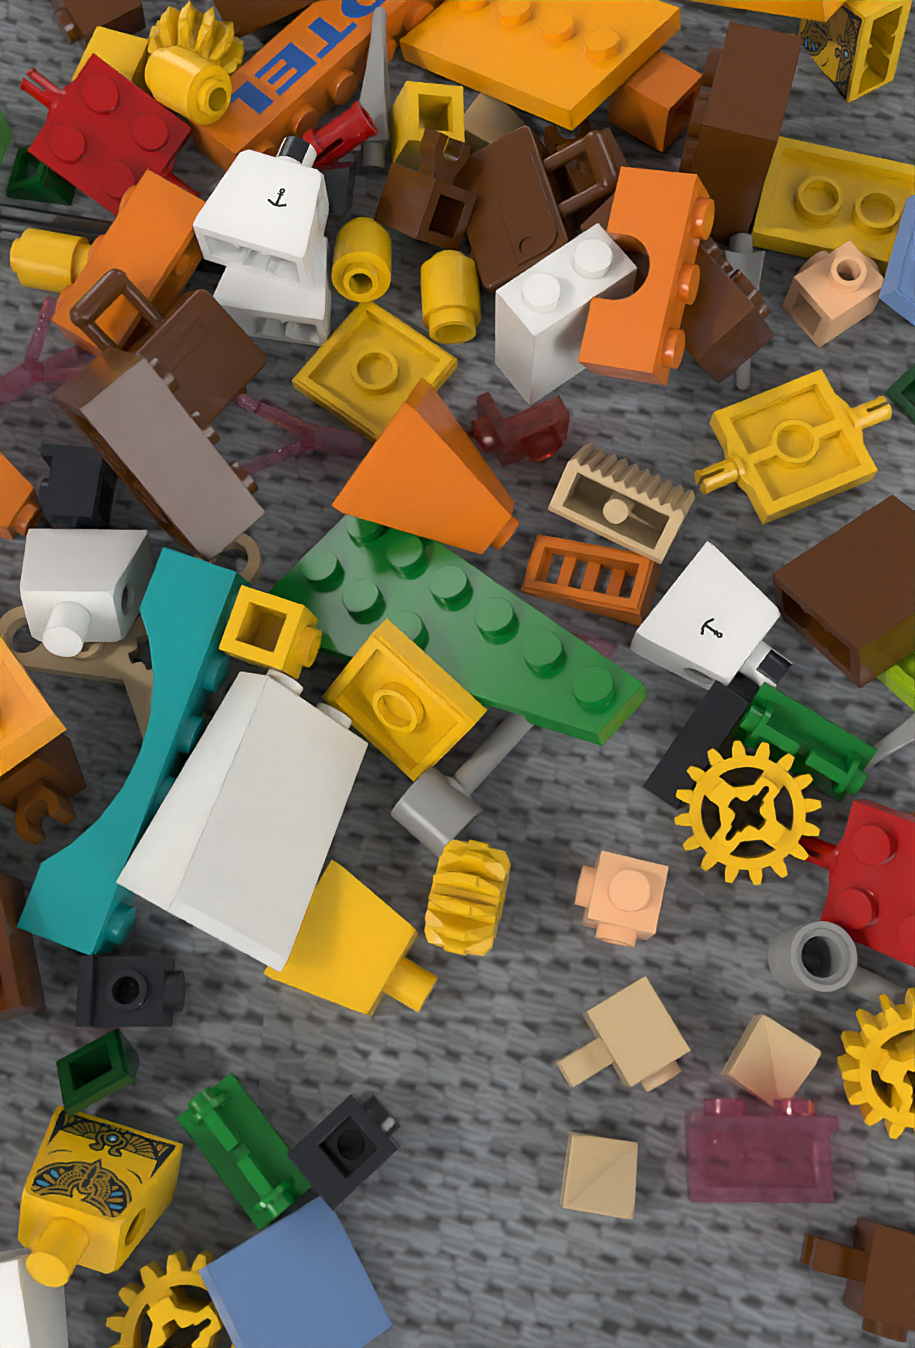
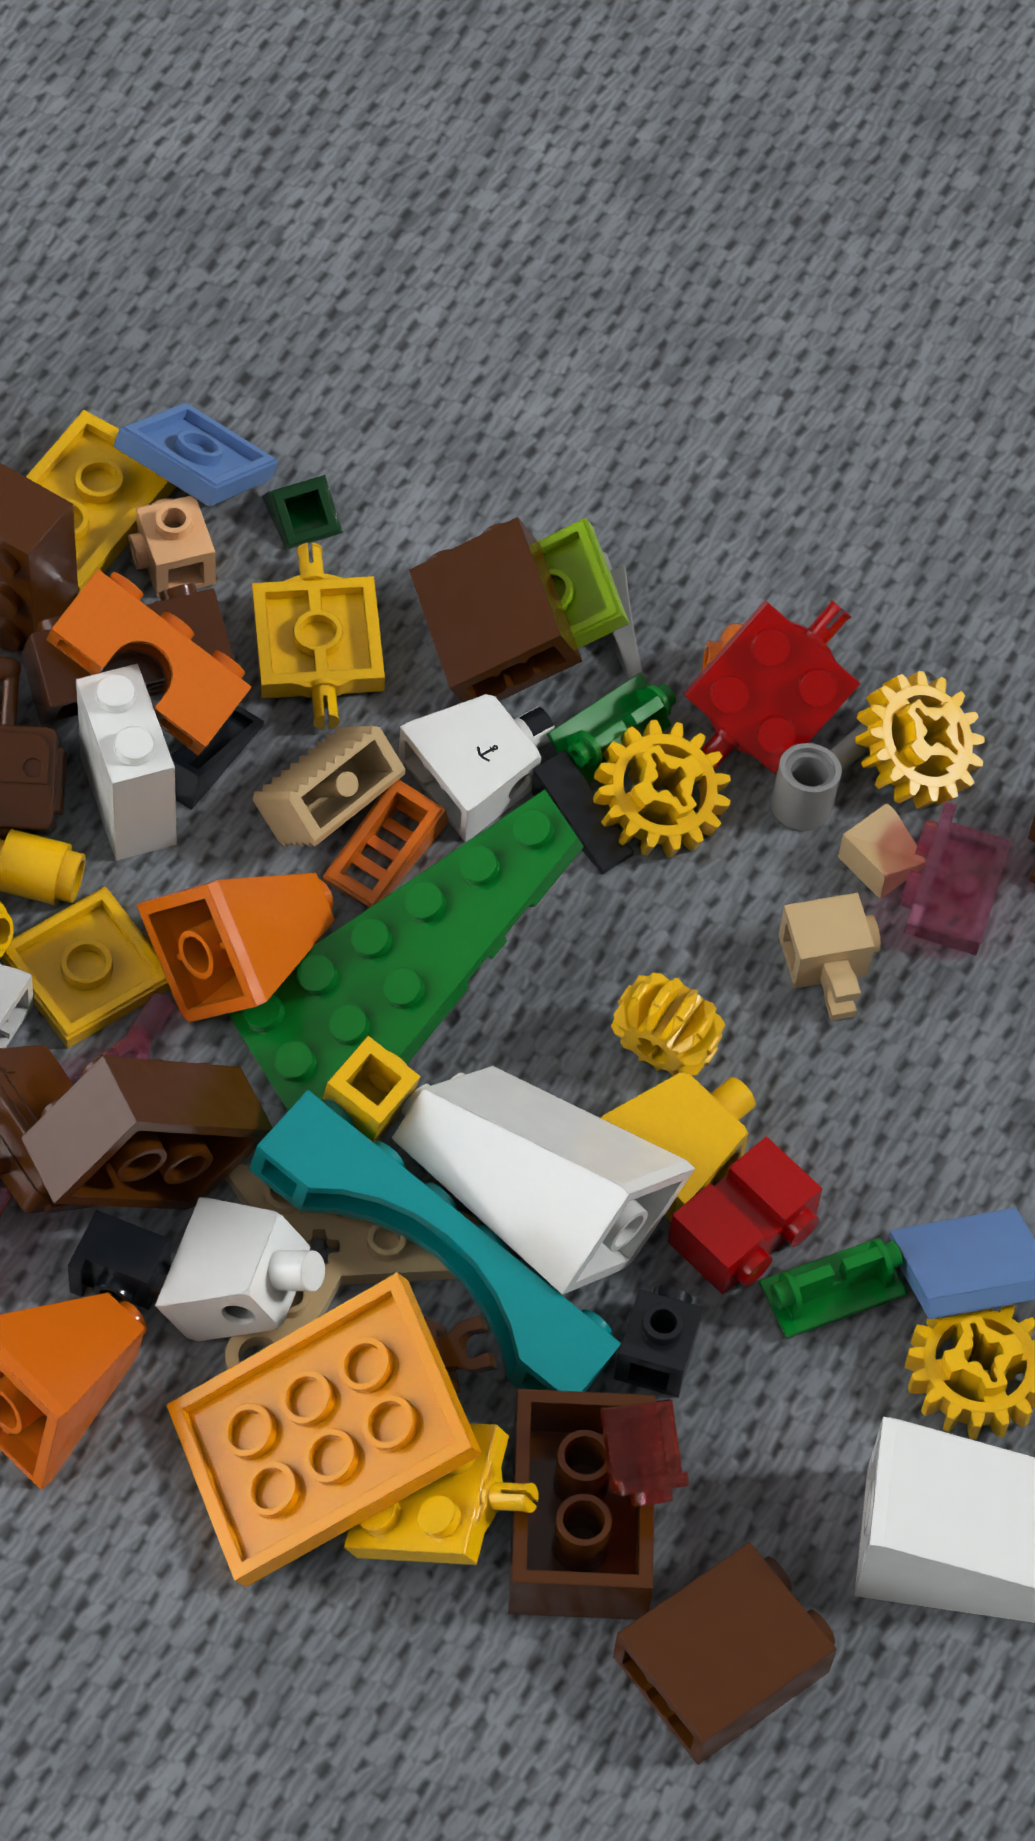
camera: 80 degrees left, 15 degrees down
(93, 1195) = (832, 1396): yellow torso -> none
(96, 1071) = (729, 1377): dark green slope -> none
(286, 1039) = (746, 1217): none -> red brick
(322, 1160) = (866, 1173): black brick -> none
(403, 701) = (470, 1012): yellow tile -> none
(440, 805) = (569, 1032): light grey piece -> none
(530, 433) = (222, 843): clear red bracket -> none
(600, 1175) = (937, 1012): tan slope -> none
(621, 898) = (707, 908): light nougat brick -> none
(634, 402) = (198, 773): none -> black piece

